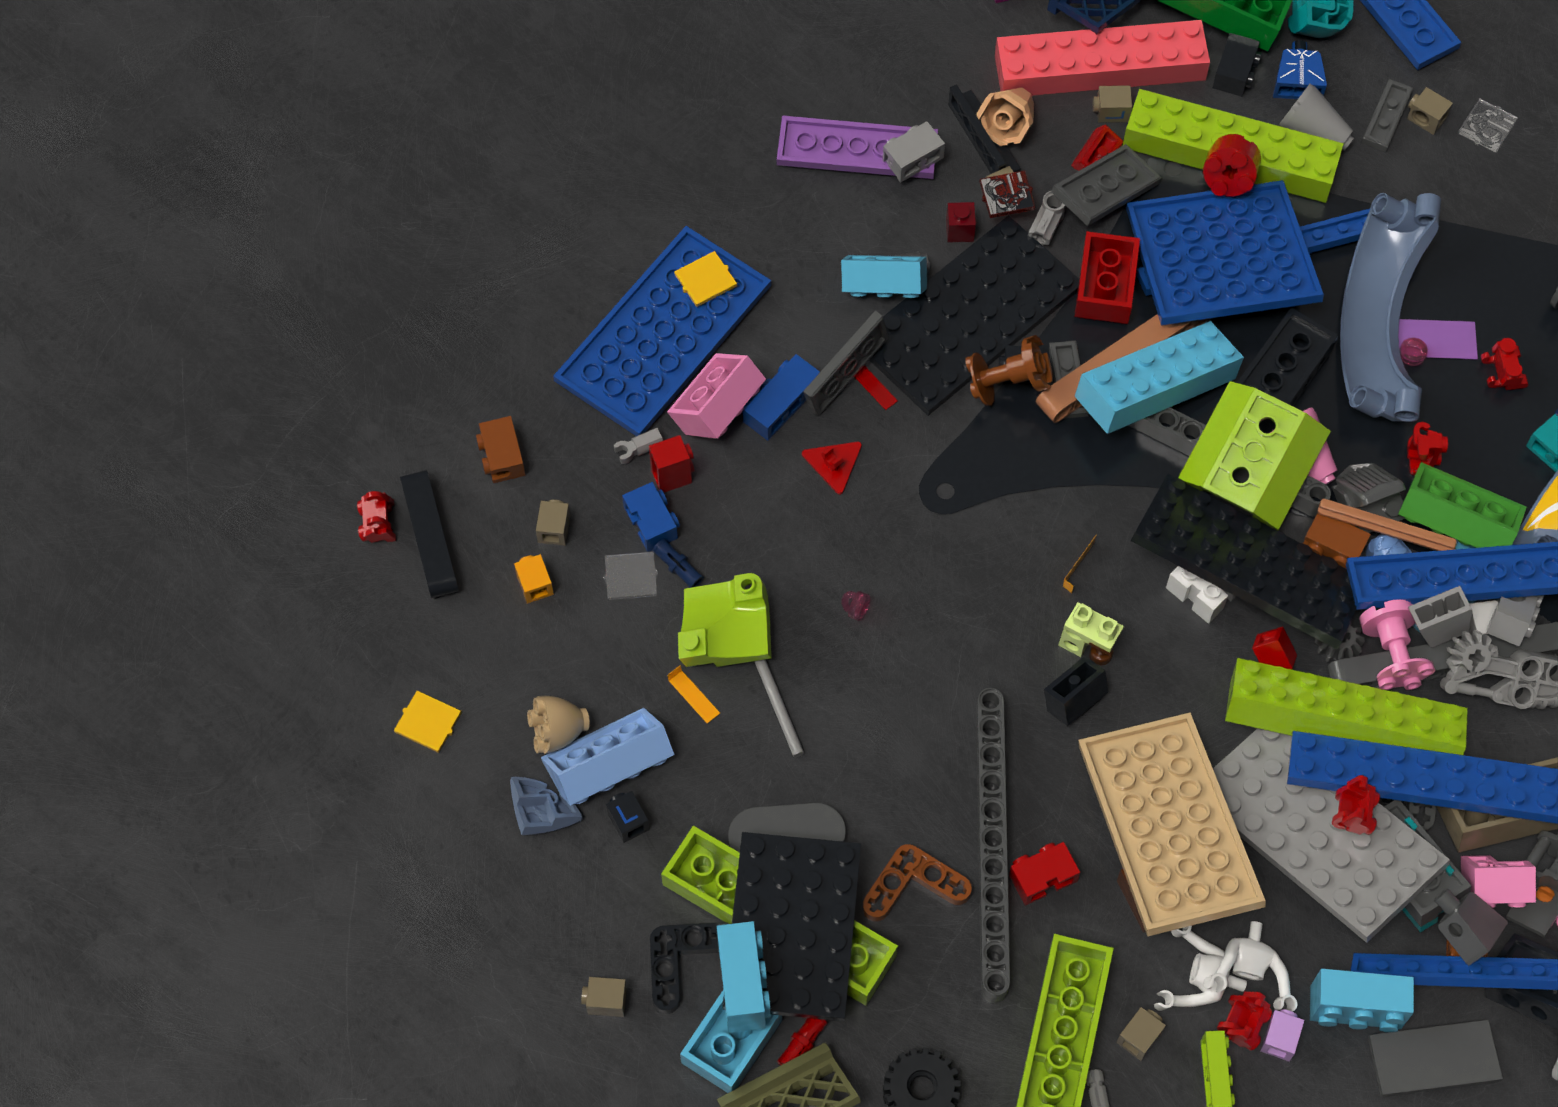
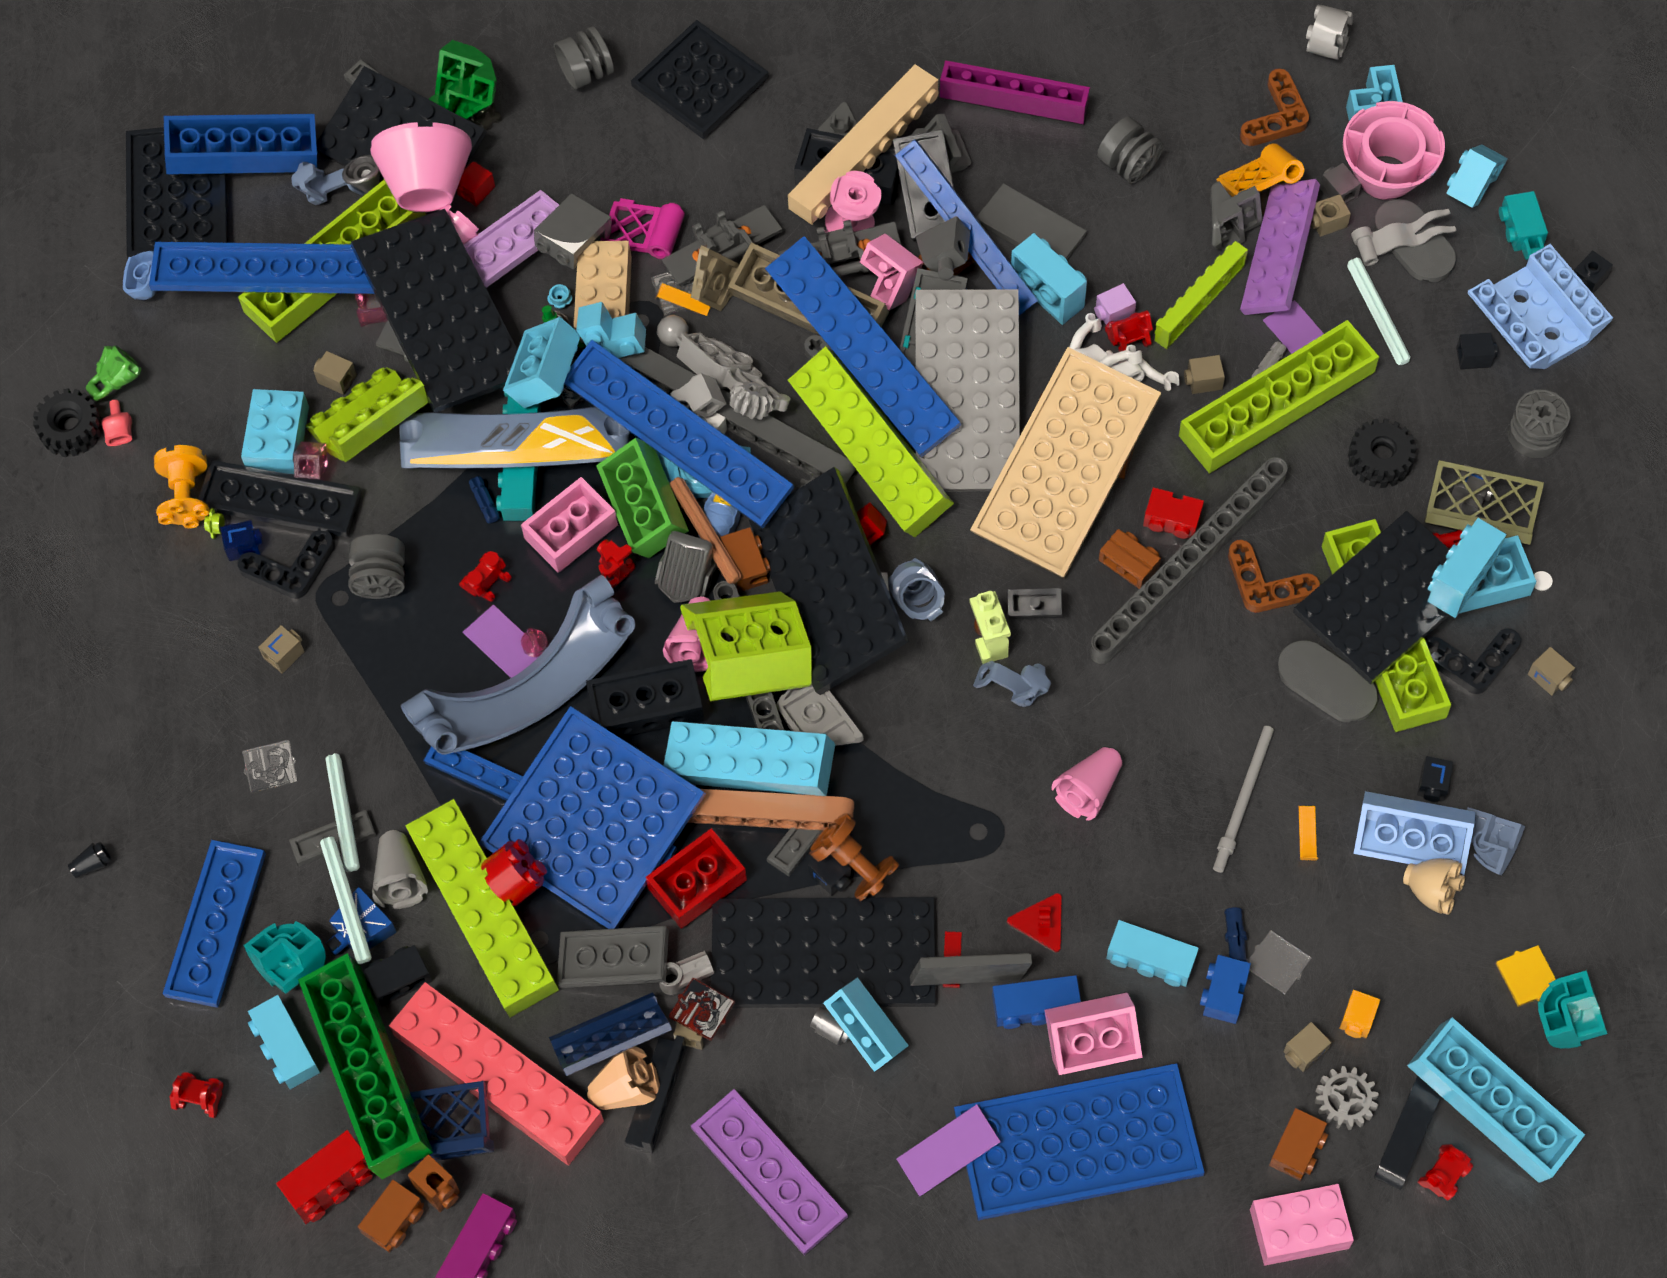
camera: 135 degrees left, 0 degrees up
(368, 702) = (1571, 1011): none -> teal brick
(374, 579) = (1496, 1100): none -> medium azure brick
(453, 395) = (1301, 1224): none -> bright pink brick
(491, 522) = (1335, 1095): none -> light grey gear
(638, 445) = (1173, 1055): light grey bar -> none
(671, 463) = (1177, 1008): red piece -> none
(683, 1089) = (1543, 580): none -> white piece
(705, 278) = (1011, 1155): yellow piece -> none
(725, 623) = (1245, 855): lime slope -> none
(728, 497) = (1152, 954): none -> medium azure brick
(748, 252) = (948, 1150): none -> medium lavender sticker
(858, 606) = (1129, 793): clear pink tile -> none
(895, 583) = (1087, 784): none -> bright pink cone
(913, 151) = (736, 1113): light grey hinge -> none
(960, 222) = (756, 1027): dark red brick -> none
(1018, 621) = (1025, 687): none -> sand blue piece
(1040, 801) = (1130, 558): none -> dark orange brick
(1060, 137) = (609, 1034): none -> dark blue fence
(1066, 584) = (932, 697): light orange piece -> none
(1098, 145) = (582, 1003): red slope -> none
(1113, 103) = (529, 1026): dark tan brick -> none
(1145, 463) = (814, 713): none -> light grey wing
(1186, 627) = (914, 585): none -> sand blue helmet
(1323, 66) = (345, 900): none -> light aqua axle
(1356, 806) = (940, 363): red piece -> none
(1392, 627) = (785, 456): bright pink piece -> none
(1399, 127) = (342, 813): none -> light aqua axle
(1429, 110) = (302, 808): dark tan brick -> none
(1442, 616) = (748, 431): light grey torso -> none
(1492, 447) = (569, 524): none -> bright pink brick

